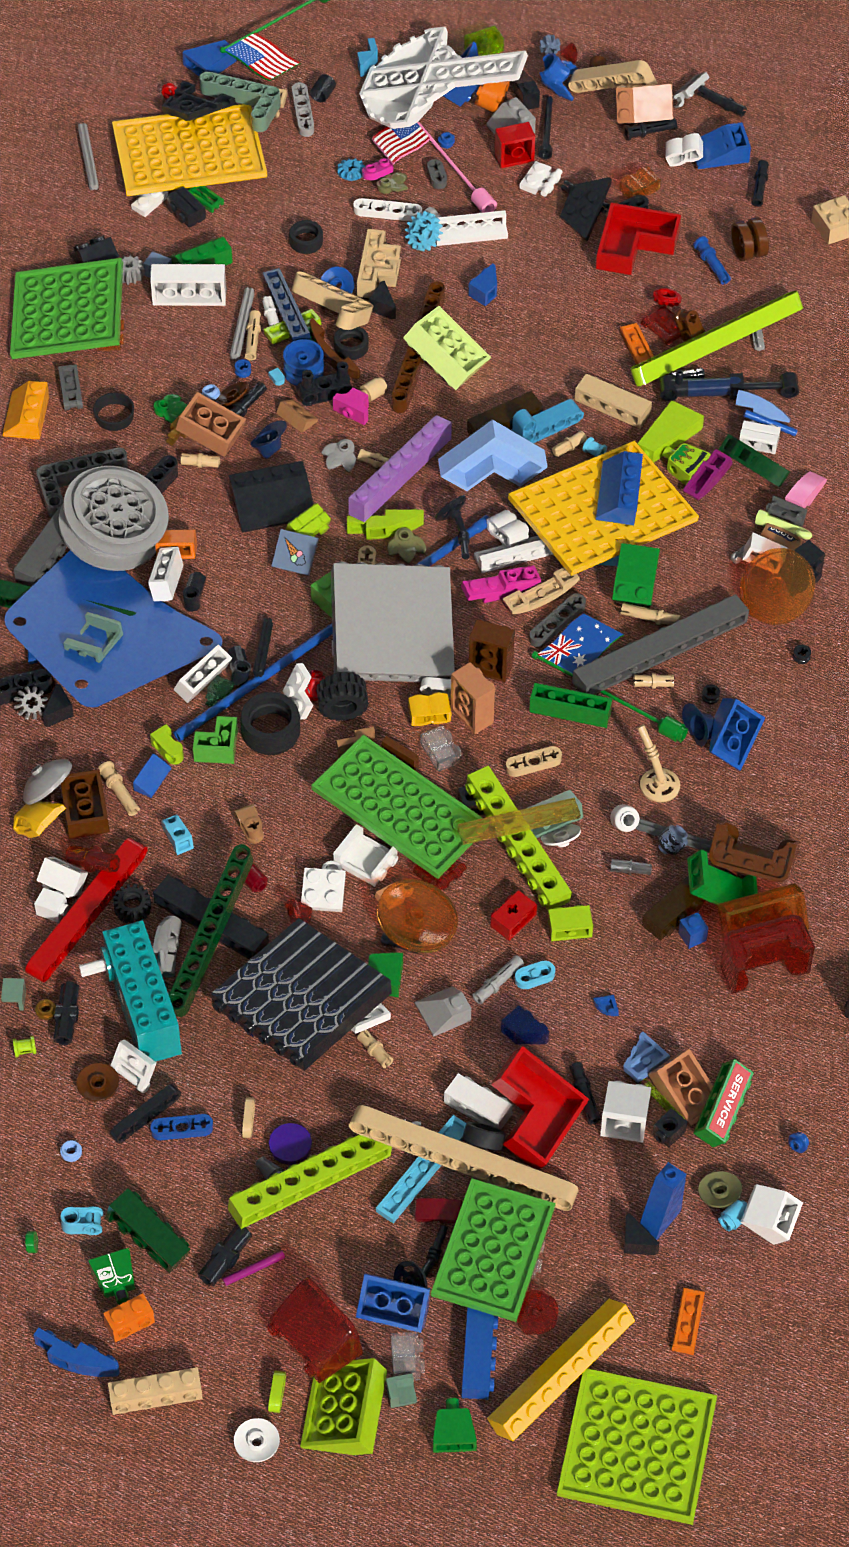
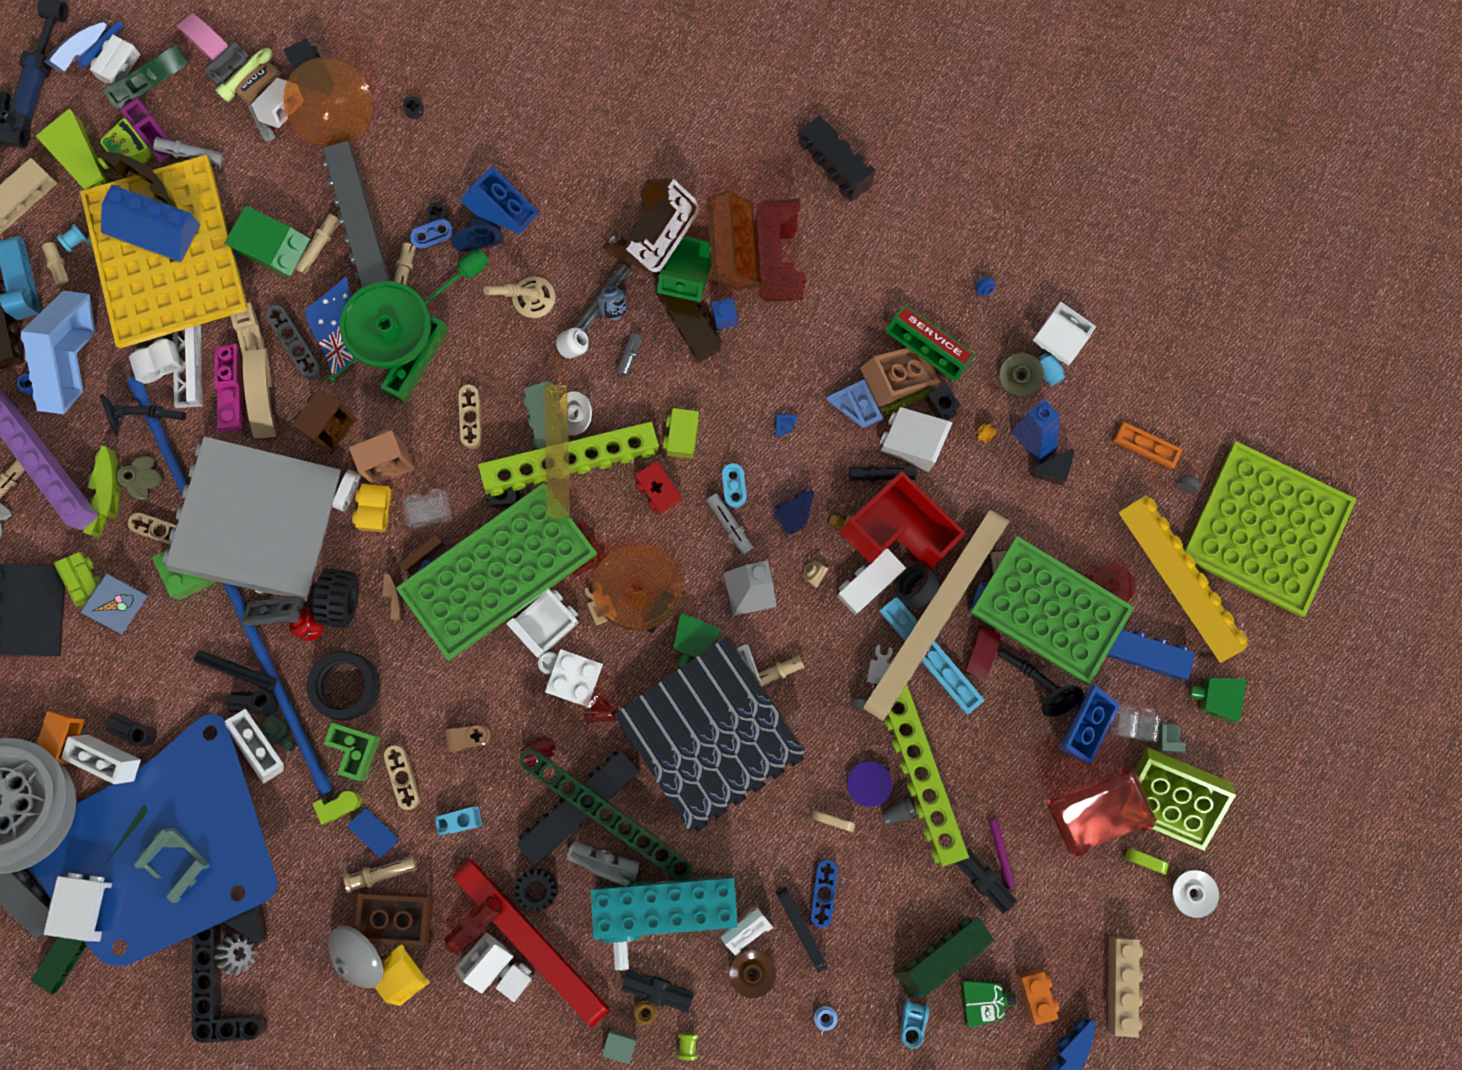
camera: 80 degrees left, 25 degrees up
(45, 584) = (76, 907): none -> white panel
(206, 778) = (411, 781): none -> tan beam
(296, 688) = (306, 647): white plate -> none
(319, 657) = (273, 611): none -> dark grey plate
(472, 1058) = (814, 573): none -> tan plate
(503, 601) = (257, 394): none -> tan slope
(587, 667) = (385, 325): none -> green dish
(651, 1172) = (986, 432): none -> light orange plate
(655, 488) = (124, 164): none -> dark brown slope
(658, 1361) = (1188, 484): none -> dark grey tile
(691, 693) = (432, 235): none -> blue plate
(697, 498) = (180, 149): none -> light grey pin

